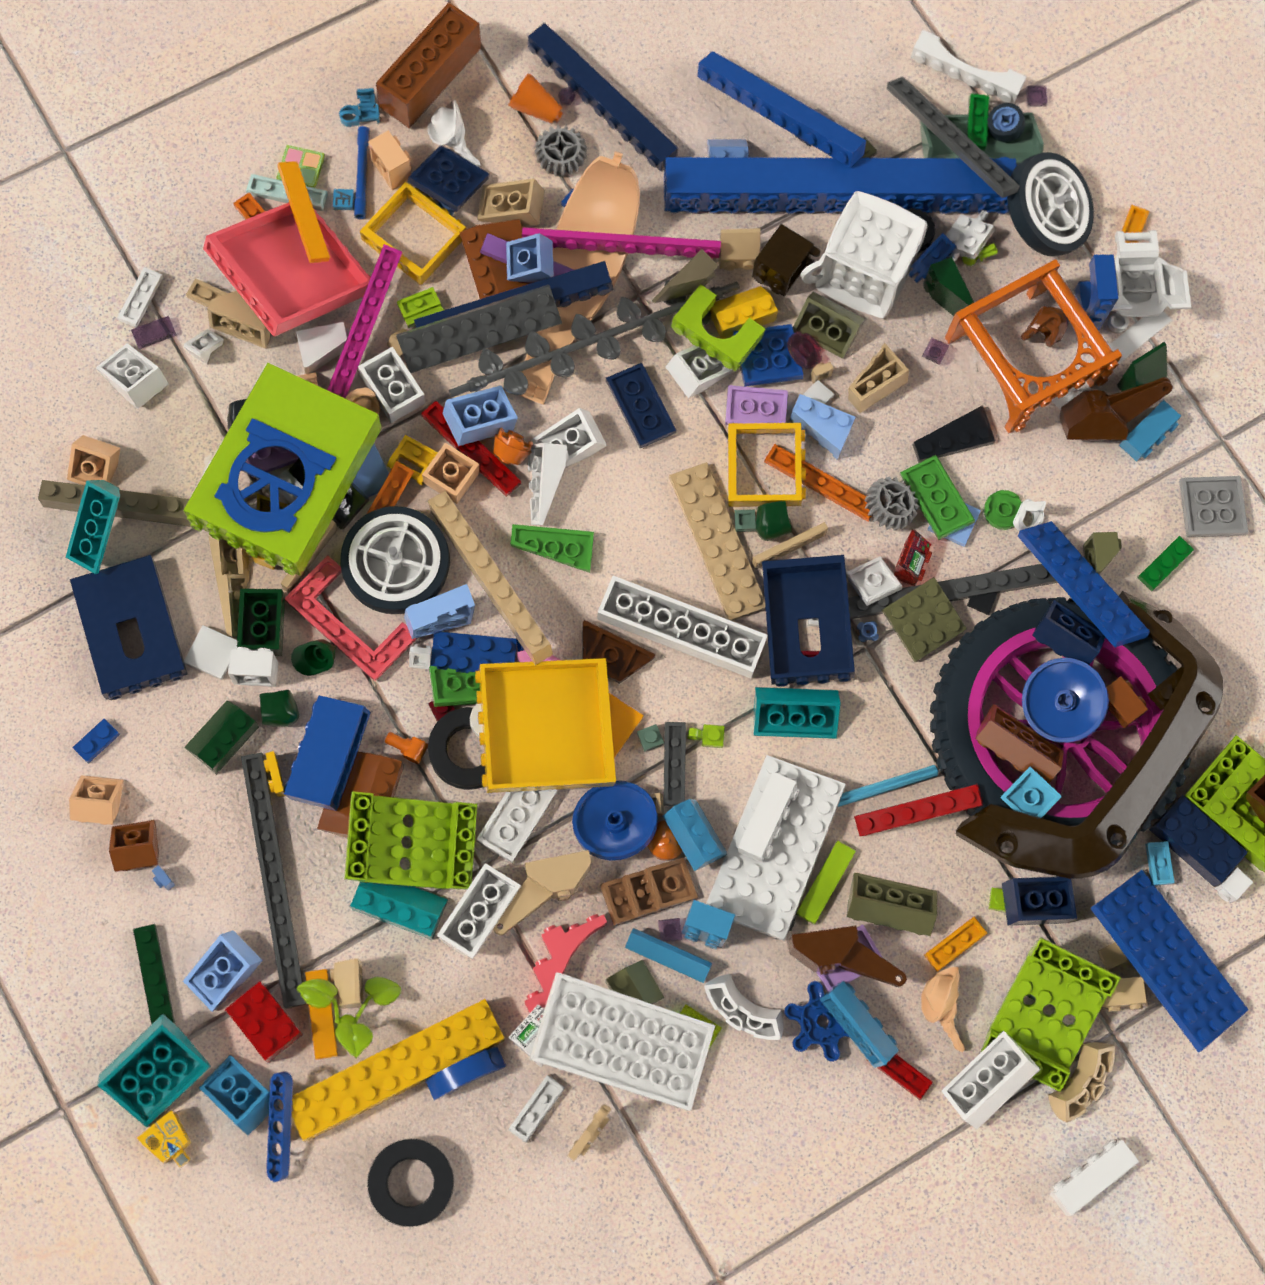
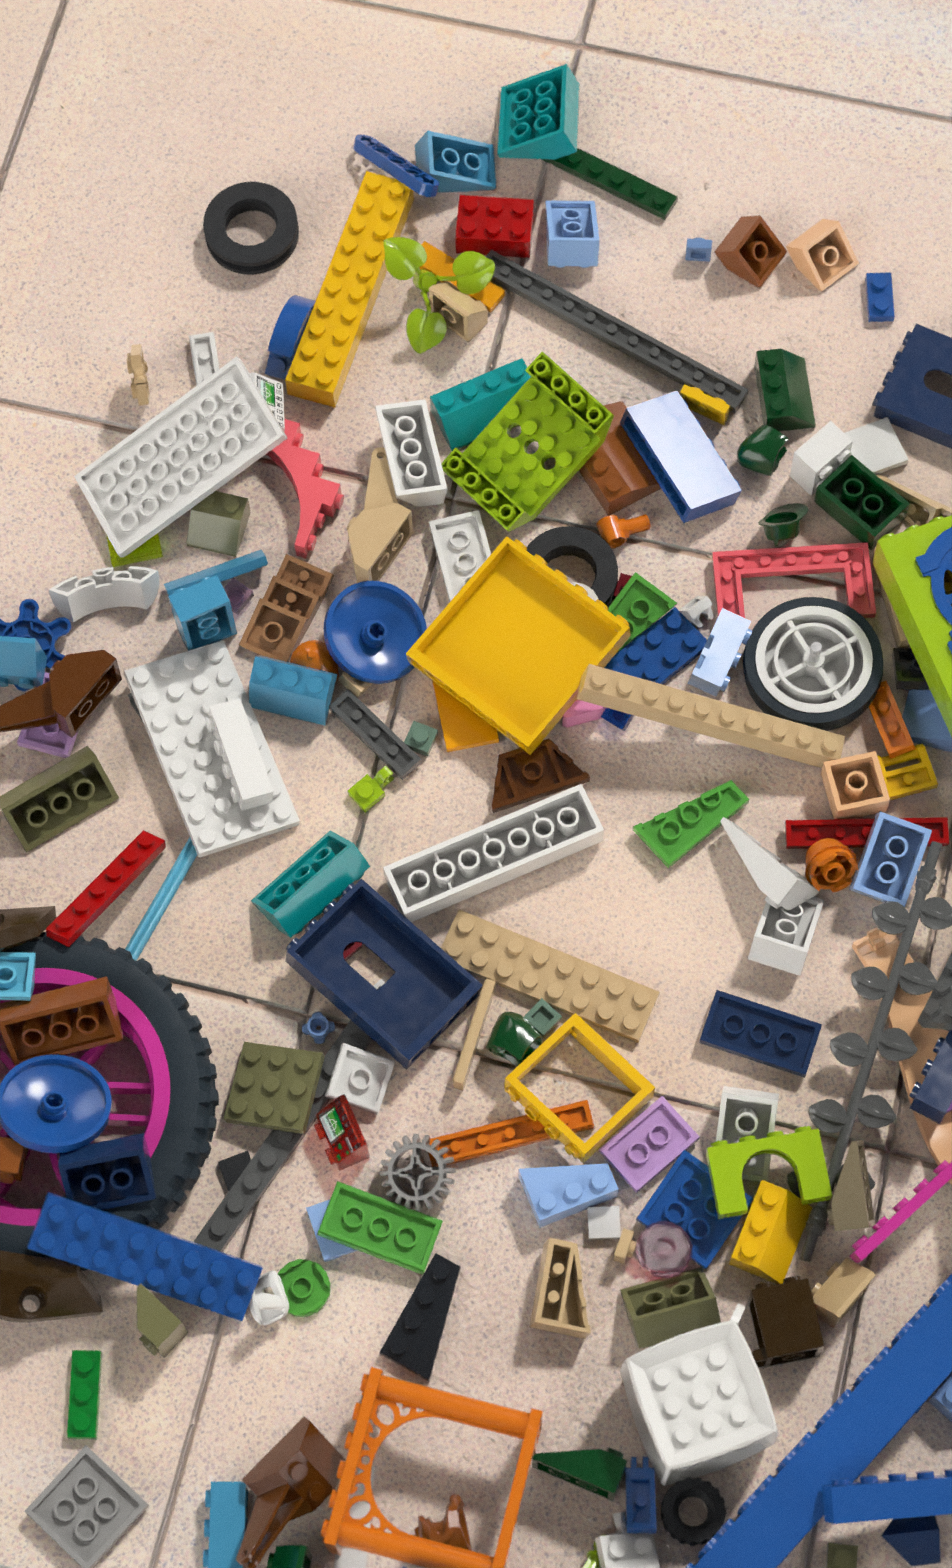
camera: 145 degrees right, 5 degrees down
(167, 1139) = (473, 89): yellow torso -> none
(825, 882) = (136, 764): lime tile -> none
(935, 351) = (534, 1392): clear purple plate -> none

